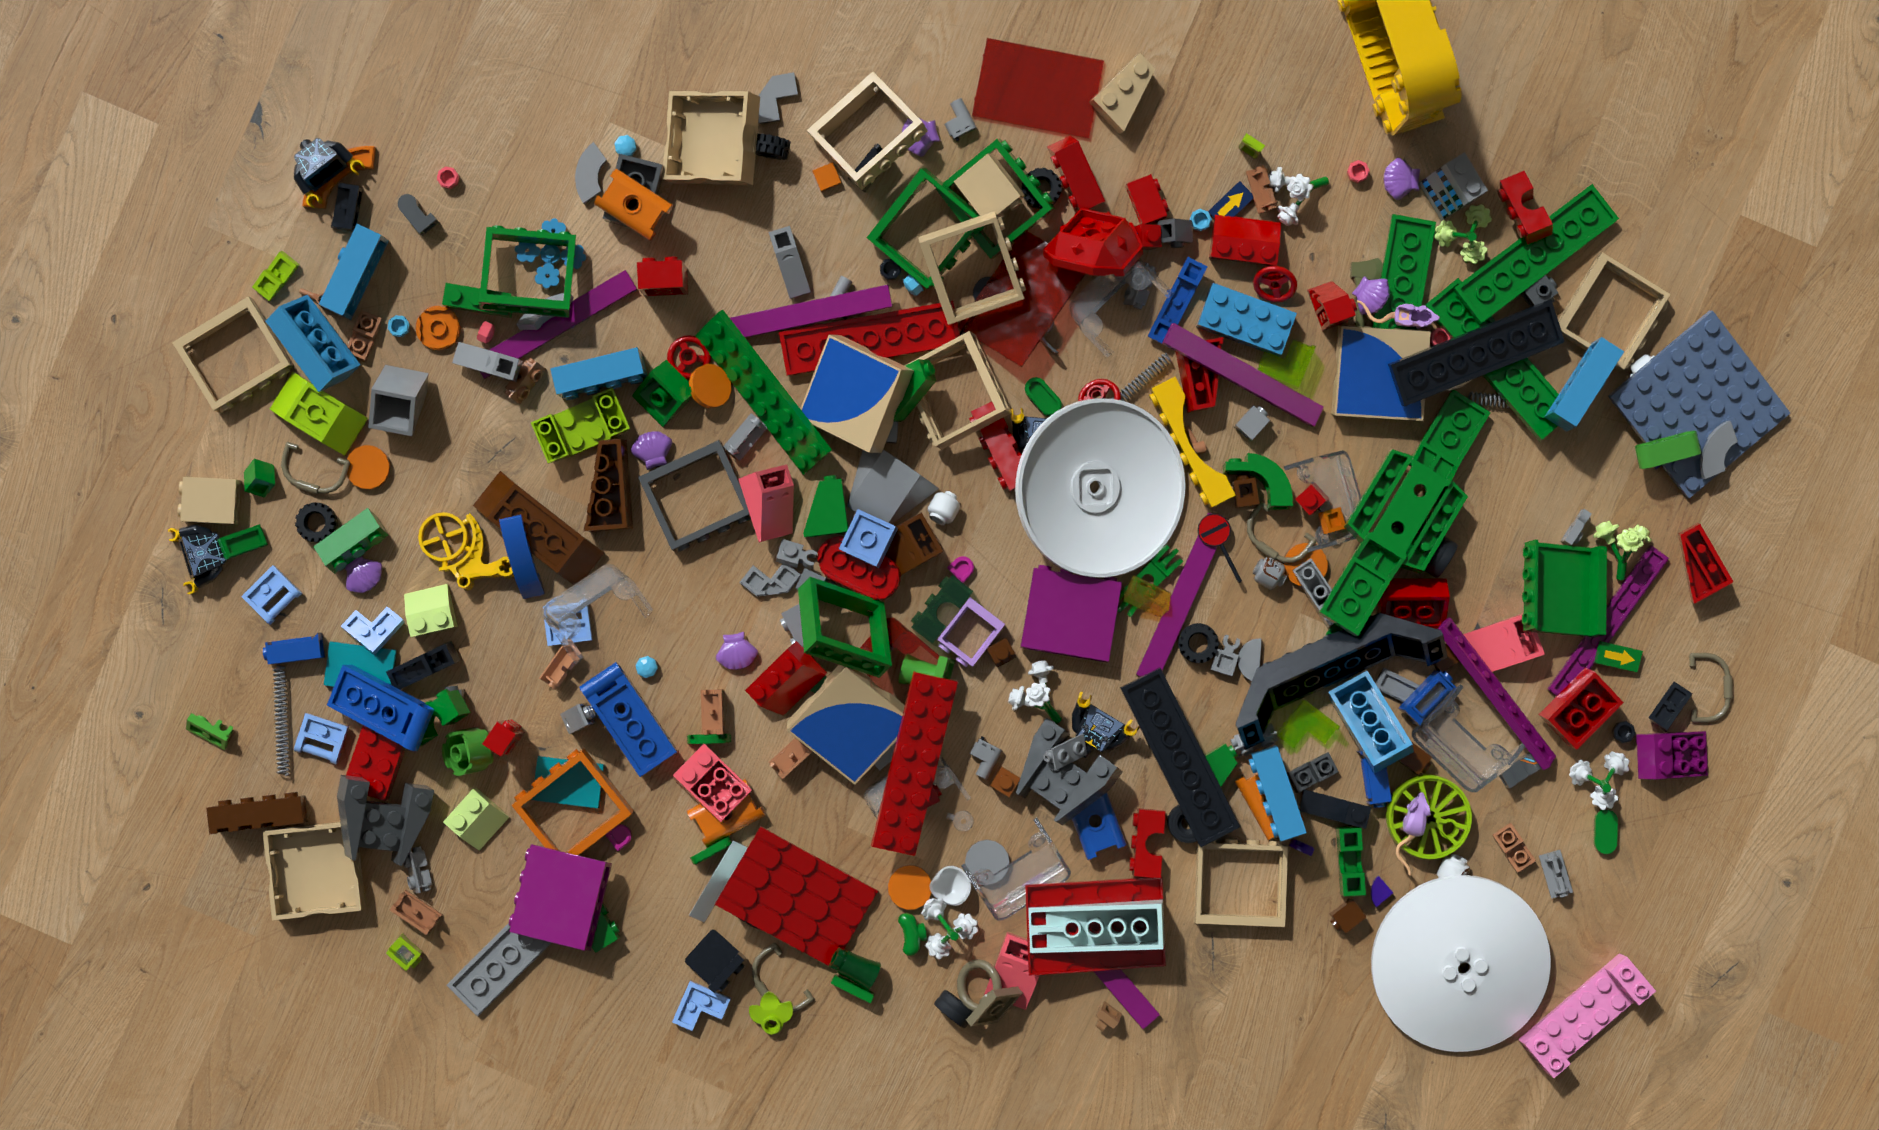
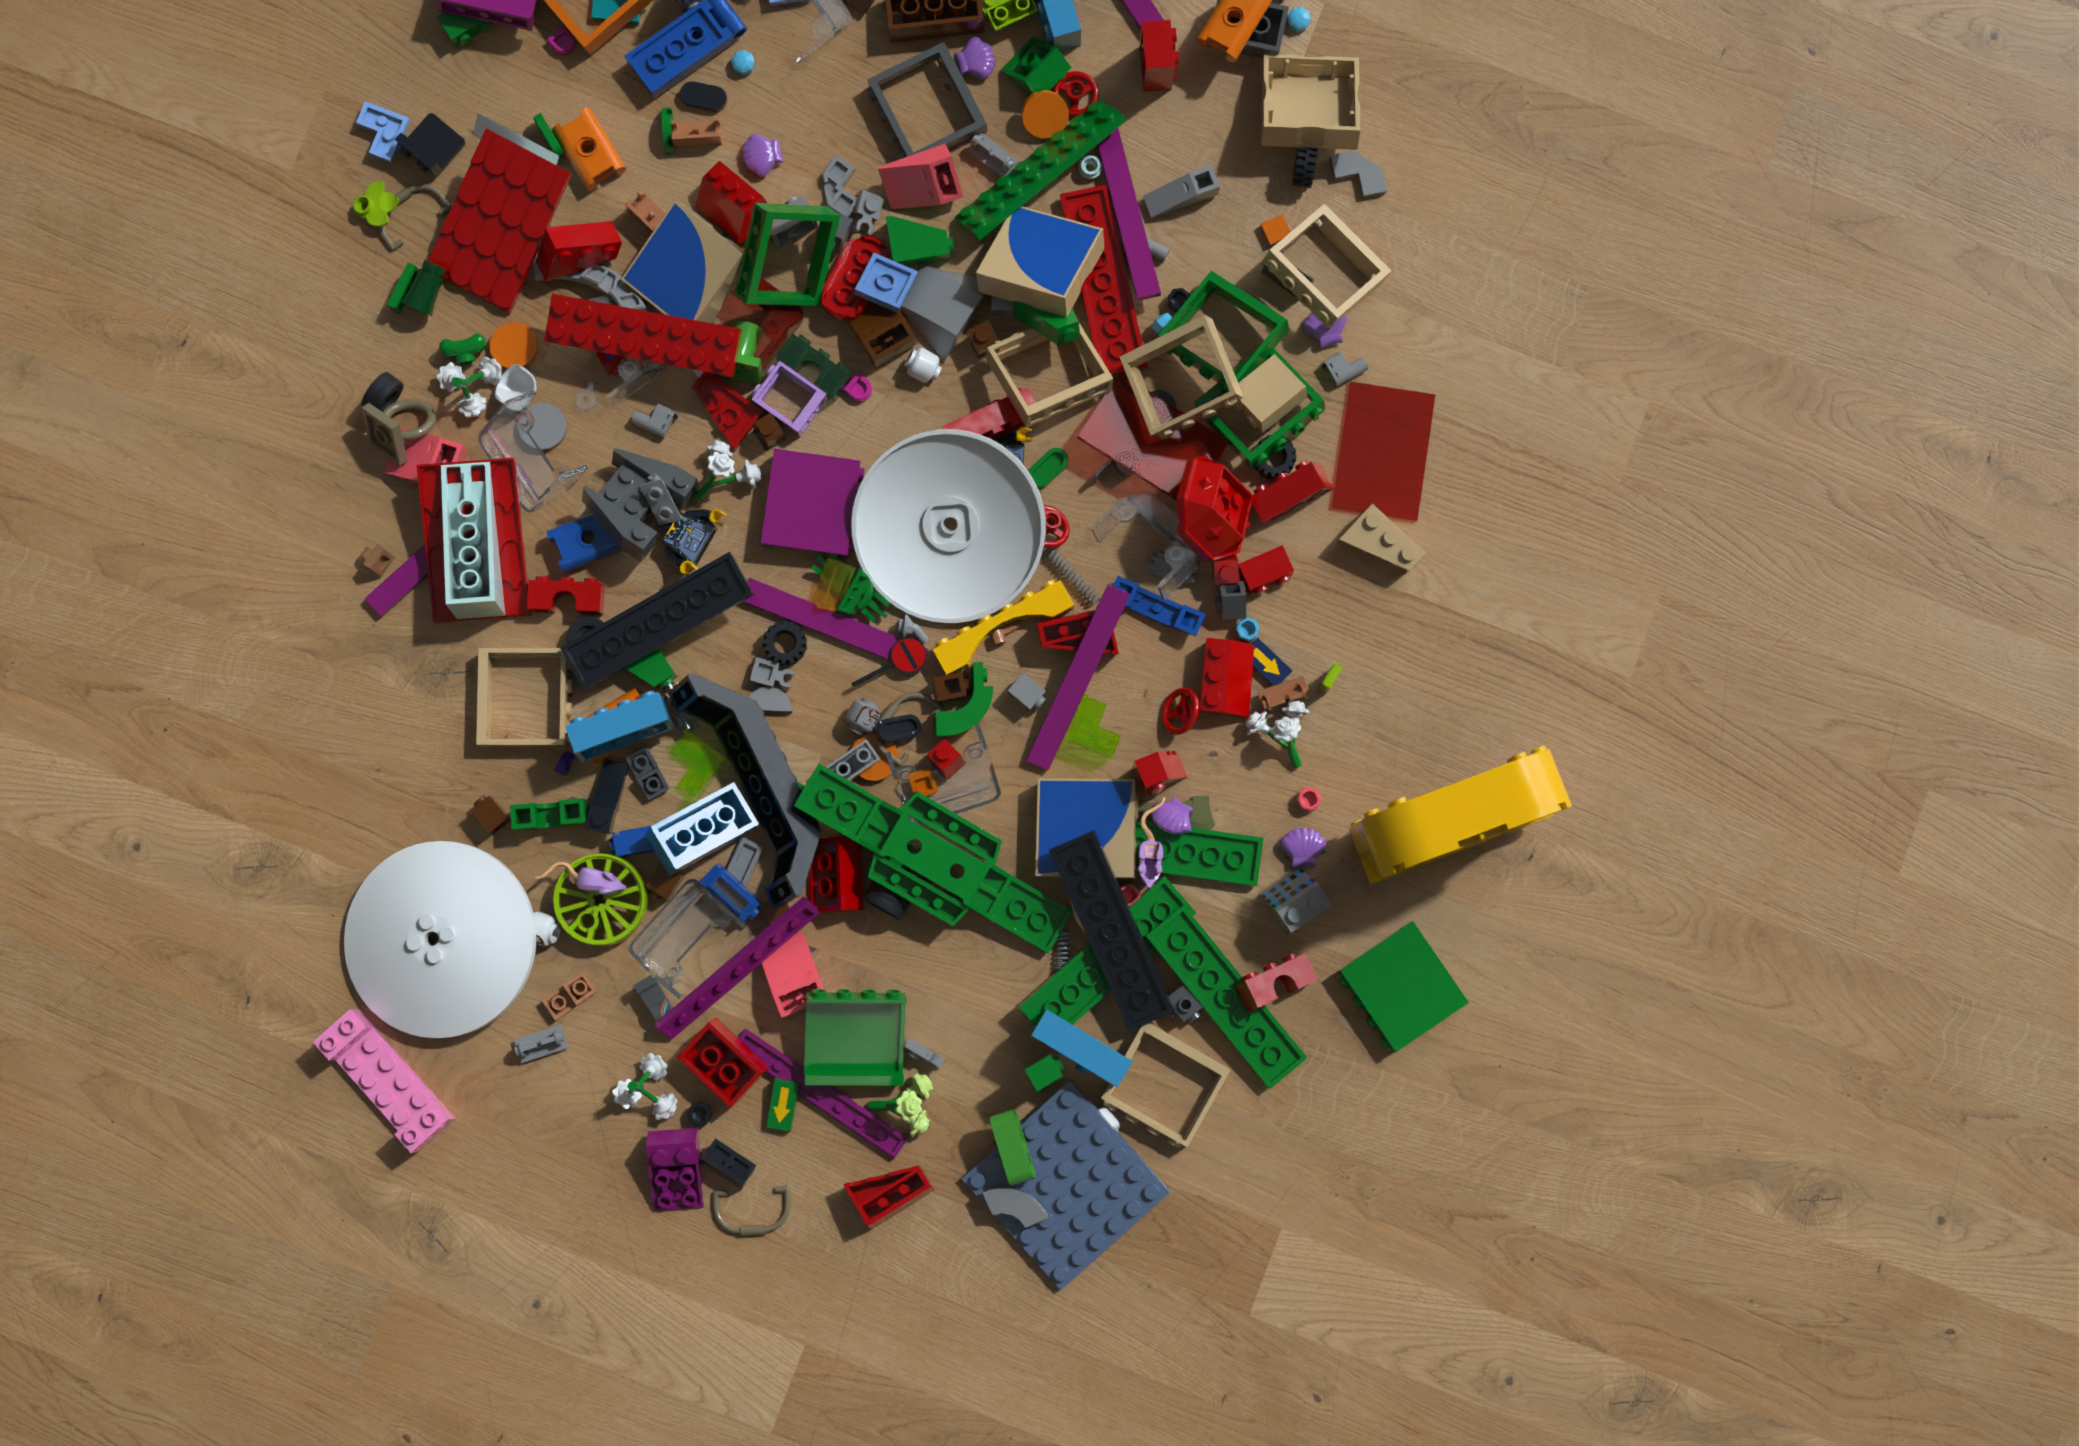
camera: 85 degrees right, 5 degrees down
(677, 704) = (703, 96): none -> black tile
(711, 783) = (620, 129): coral slope -> none
(761, 339) = (1090, 160): none -> light aqua plate
(823, 824) = (576, 248): none -> red wedge
(846, 812) = (605, 281): none -> light grey tile
(921, 451) = (981, 338): none -> reddish brown brick
(978, 688) = (727, 407): none -> red wing
(1005, 781) = (629, 439): dark orange brick -> none
(1158, 574) = (857, 595): none -> green tile
(1188, 530) = (907, 627): none -> light grey plate
(1246, 320) = (1139, 681): dark azure brick -> none
(1281, 542) = (897, 728): none -> black tile
(1379, 891) = (518, 850): dark purple tile -> none
(1471, 251) = (1226, 927): yellowish green plant -> none
(1532, 95) = (1402, 987): none -> green panel
(1602, 418) = (1045, 1072): none -> green brick
(1605, 831) = (589, 1098): green tile -> none

